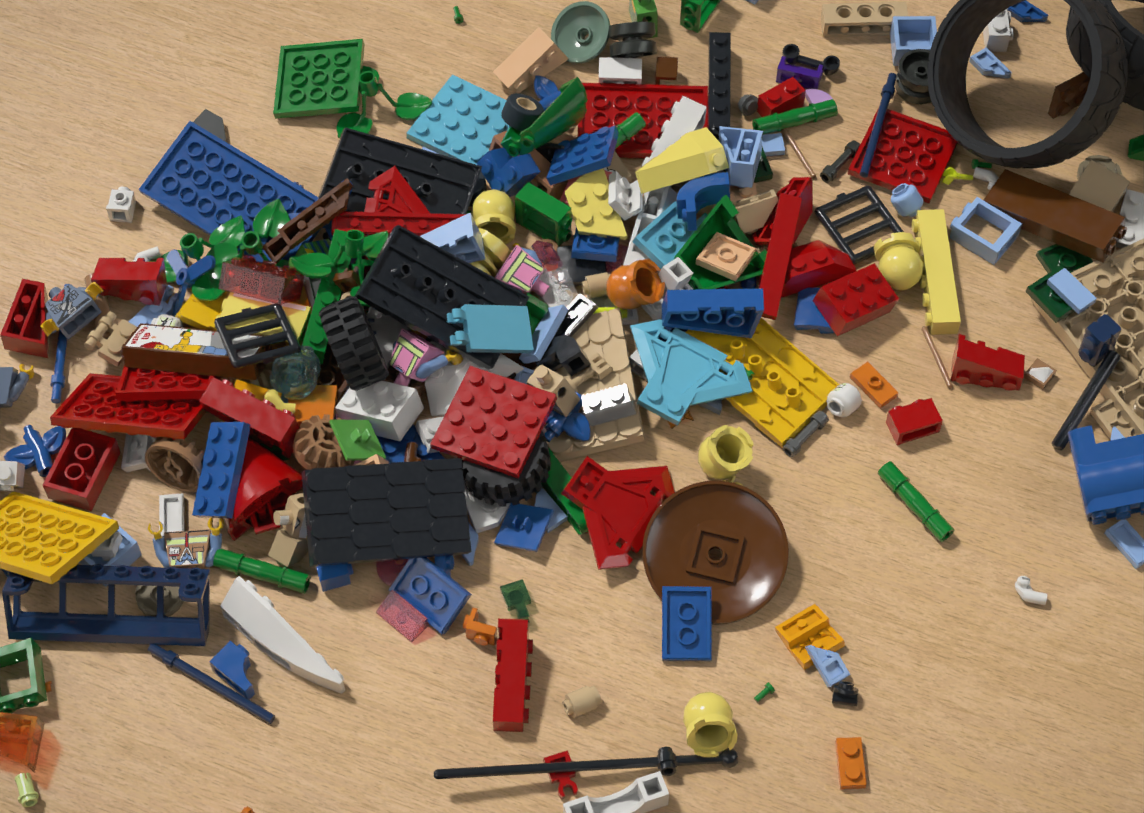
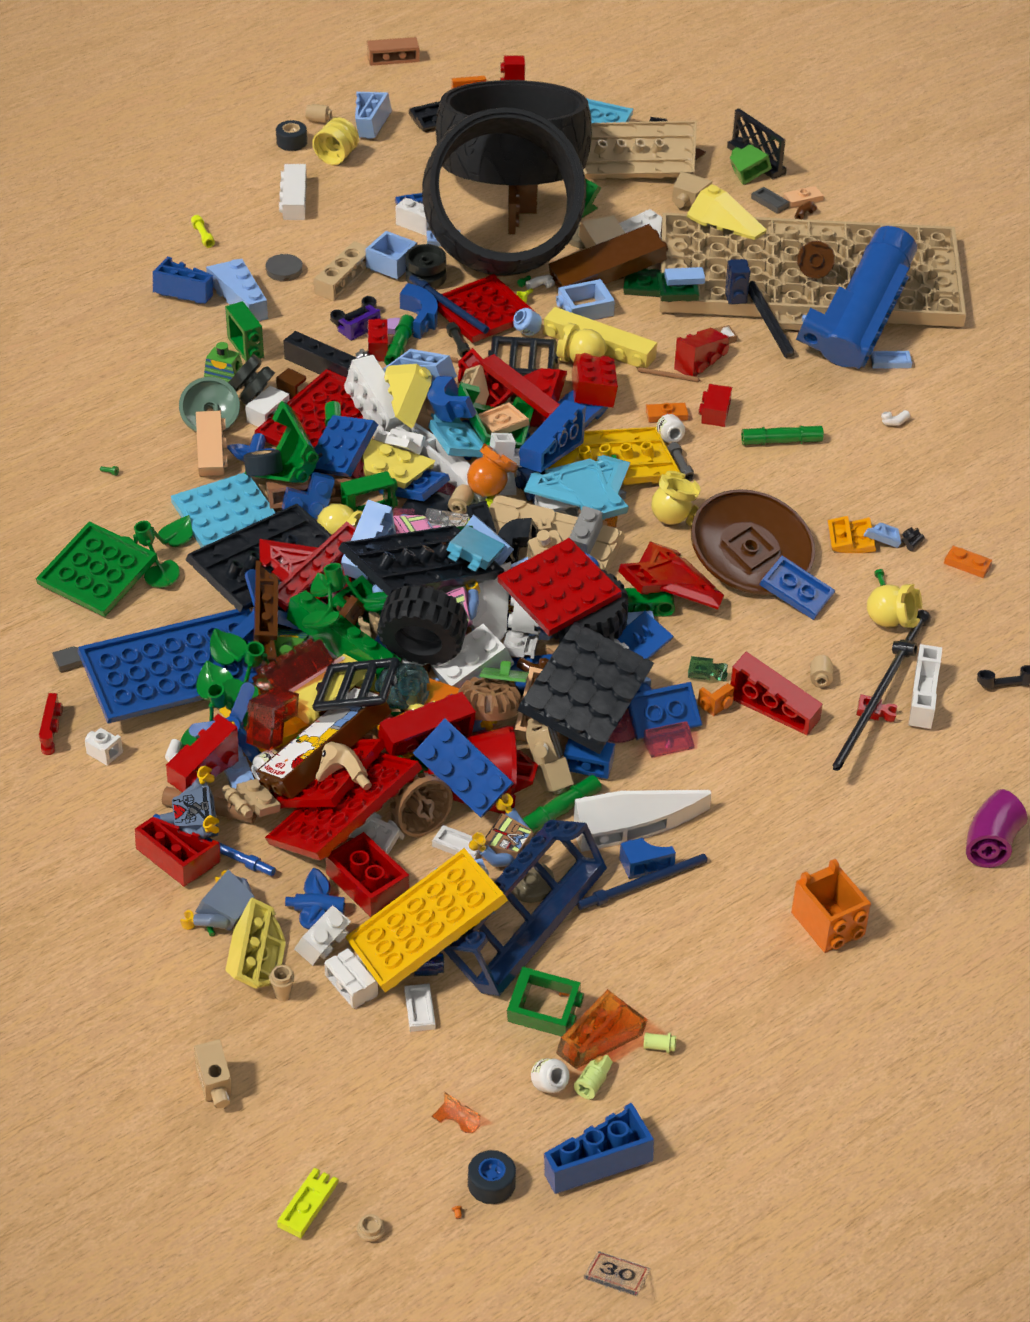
camera: 60 degrees left, 15 degrees down
(121, 155) = (50, 723): none -> red plate
(165, 372) = (339, 756): none -> tan animal
(190, 293) = (267, 717): none -> clear red brick
(861, 114) = (424, 304): none -> blue arch

